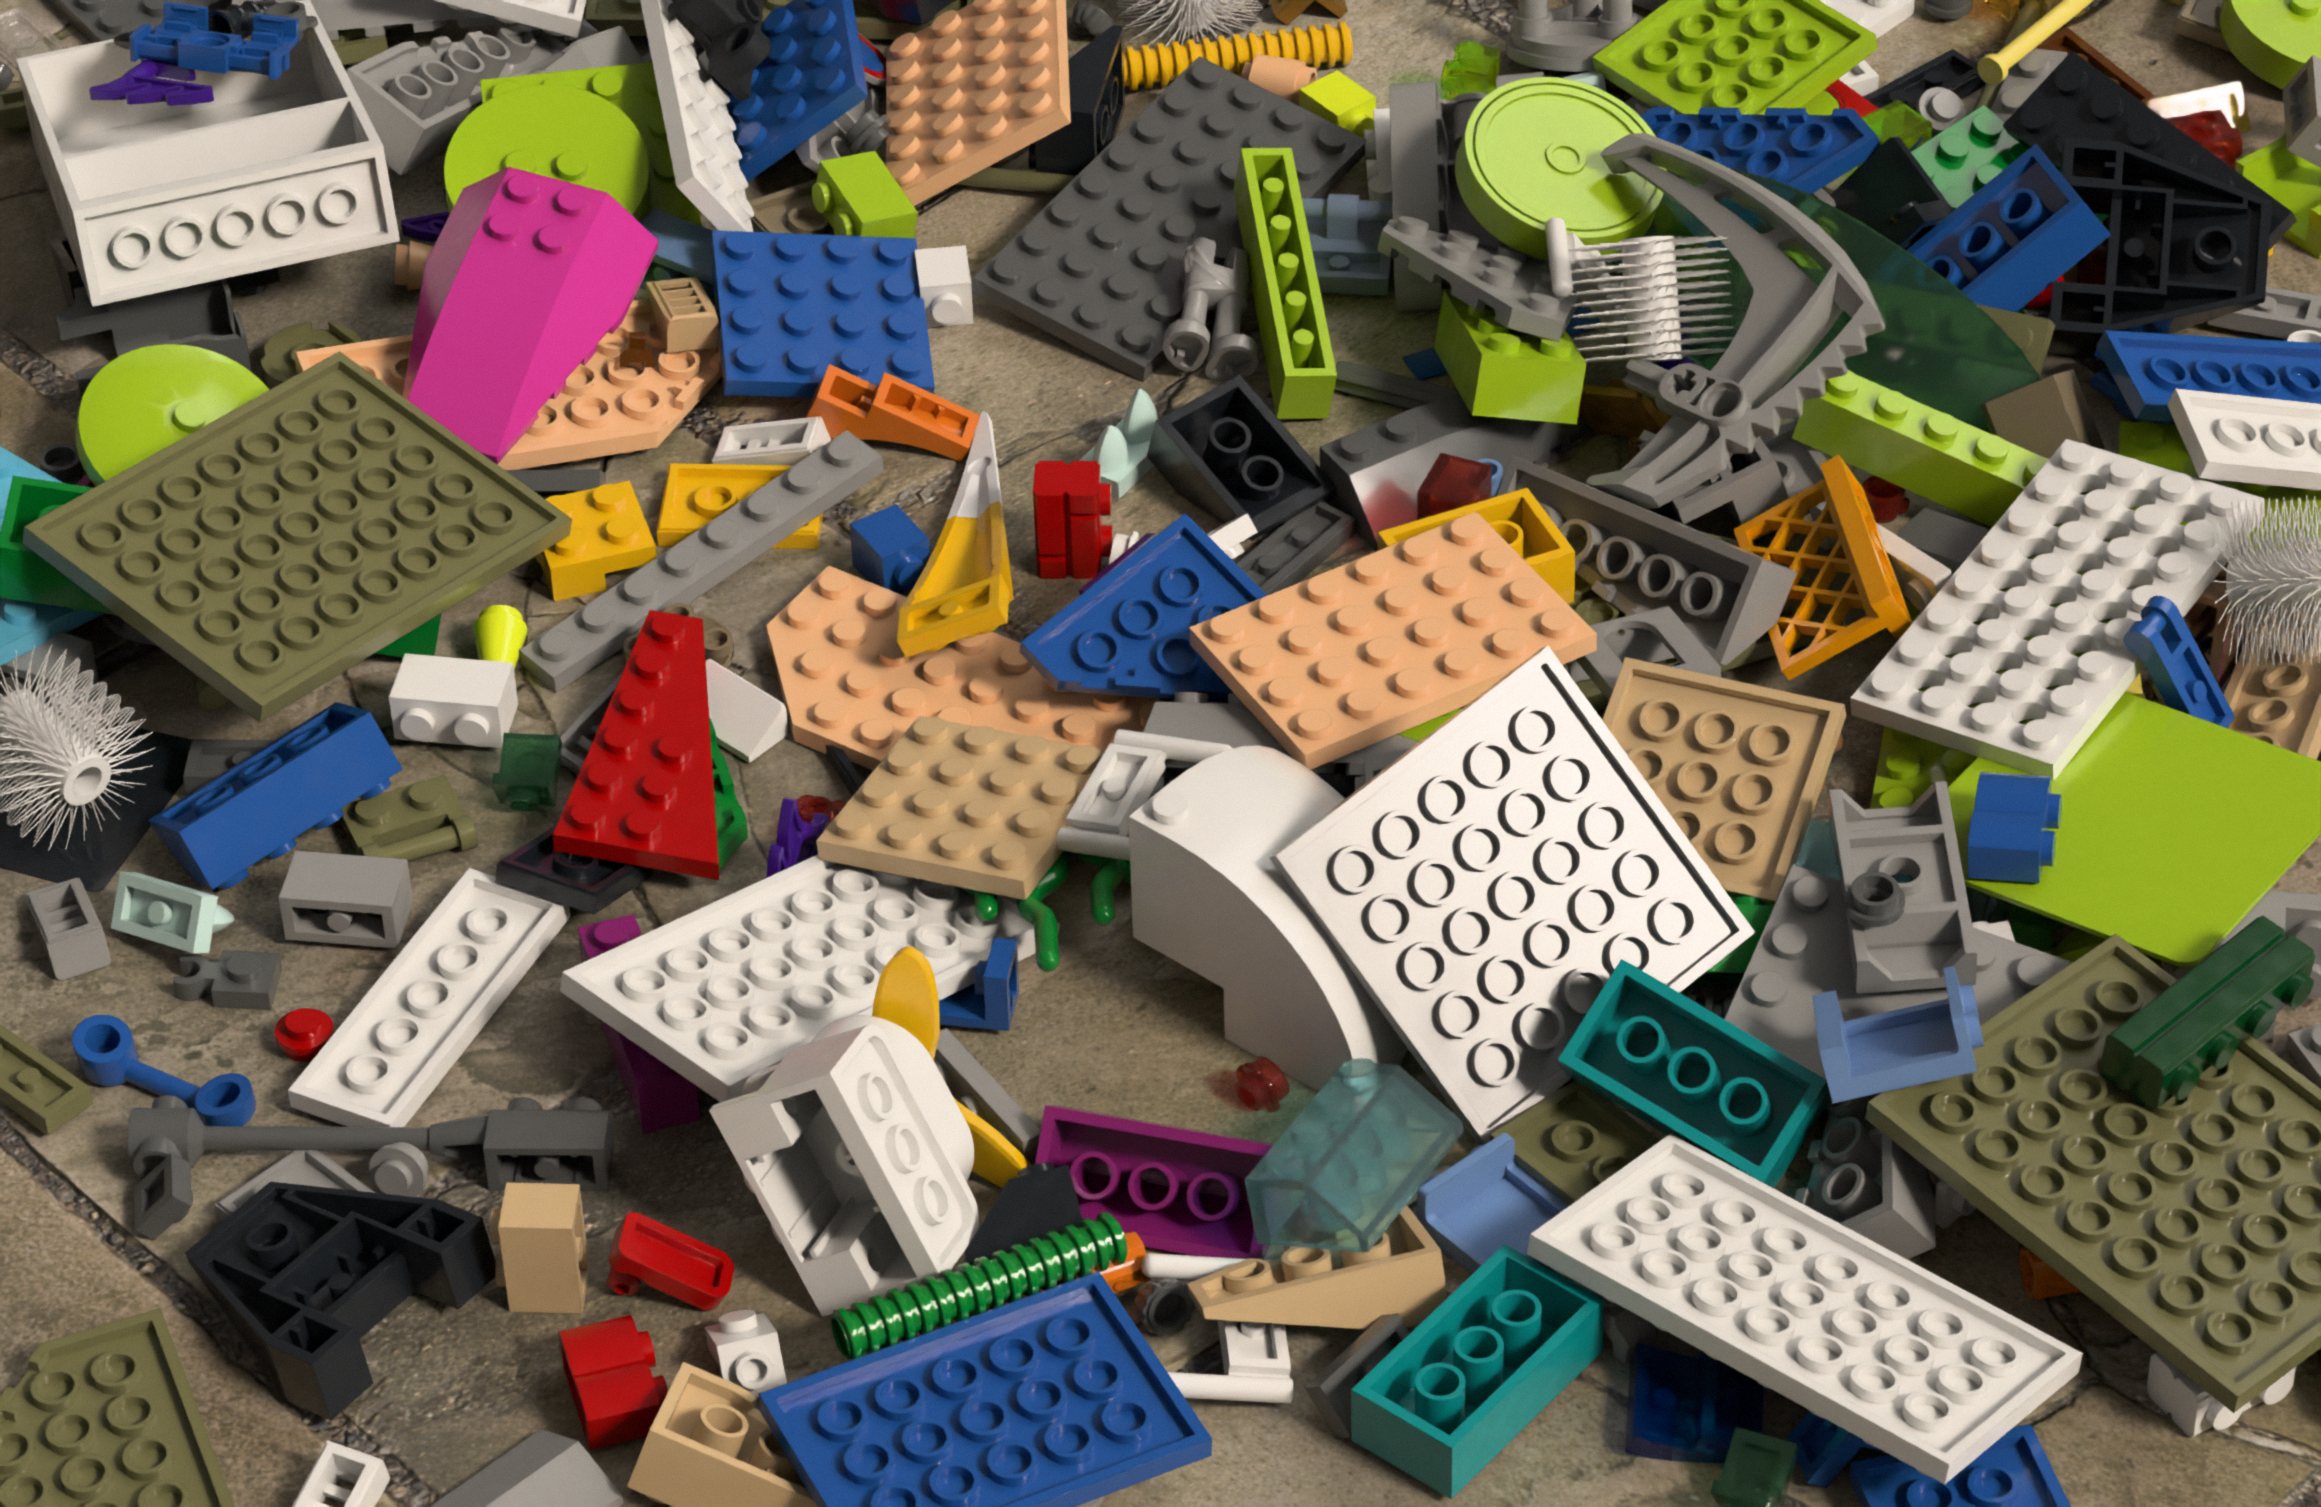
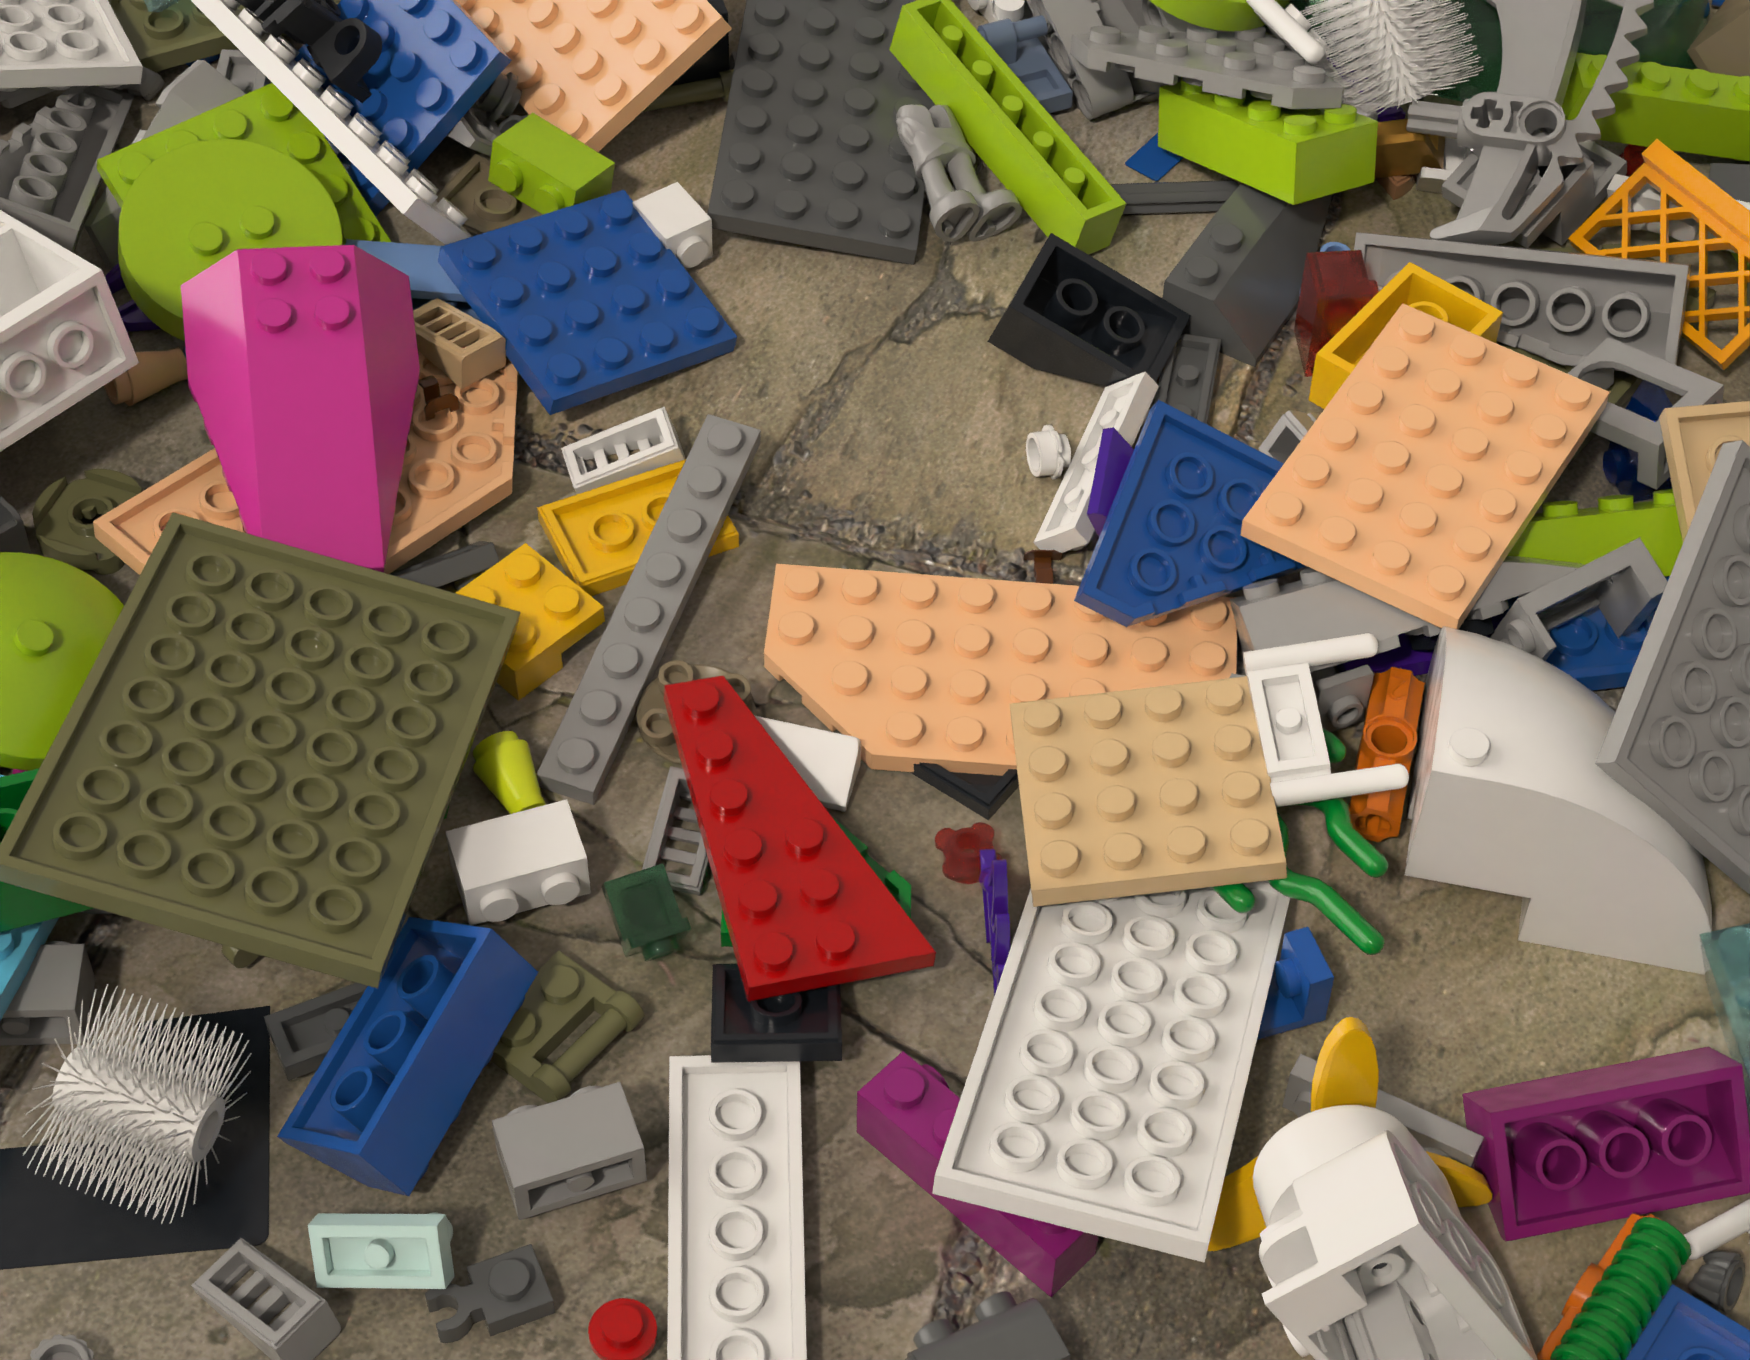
camera: 30 degrees left, 10 degrees up
(889, 549) = (829, 527): blue brick -> none
(892, 413) = (720, 379): orange slope -> none
(968, 573) = (947, 542): yellow plate -> none
(1027, 1208) = (1547, 1242): black slope -> none
(1069, 519) = (990, 435): red brick -> none
(1125, 447) = (960, 341): light aqua tile -> none
(1261, 1084) = (1608, 982): clear red plate -> none

